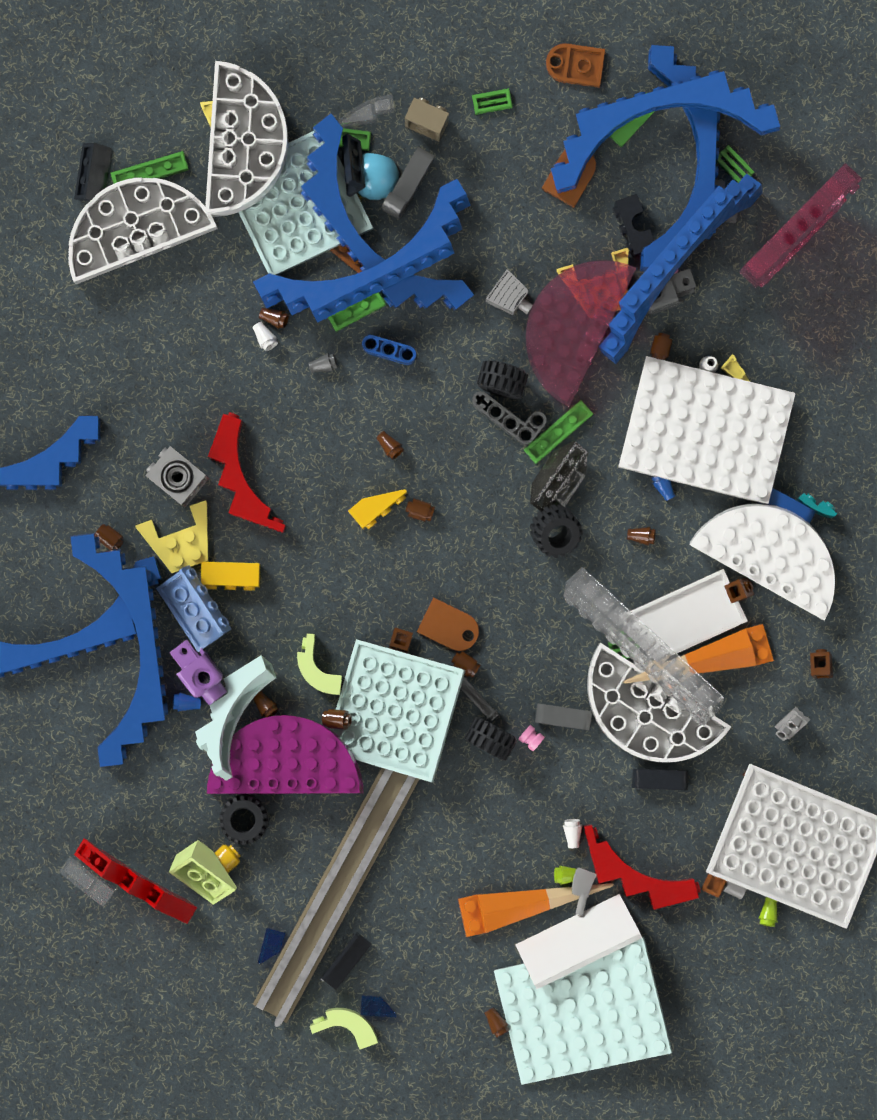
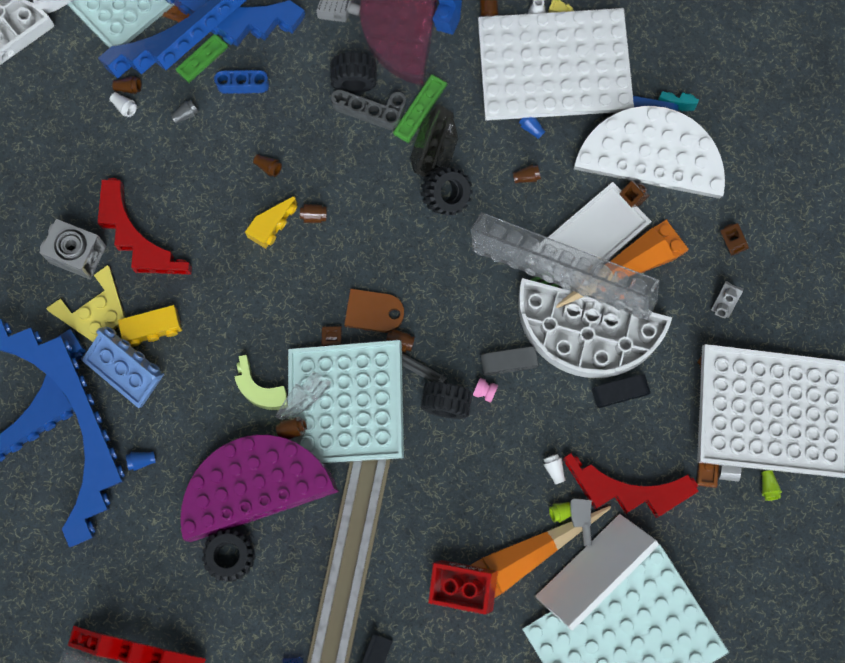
camera: 15 degrees left, 10 degrees down
(109, 537) = (21, 323): reddish brown brick -> none
(191, 666) = (136, 420): medium lavender piece -> none
(202, 872) = (201, 621): yellowish green slope -> none
(226, 712) = (181, 453): light aqua arch -> none
(228, 857) = (221, 601): yellow head -> none
(265, 705) = (217, 437): reddish brown cone -> none
(357, 692) = (303, 397): none -> clear slope
(451, 917) = (463, 587): none -> red brick

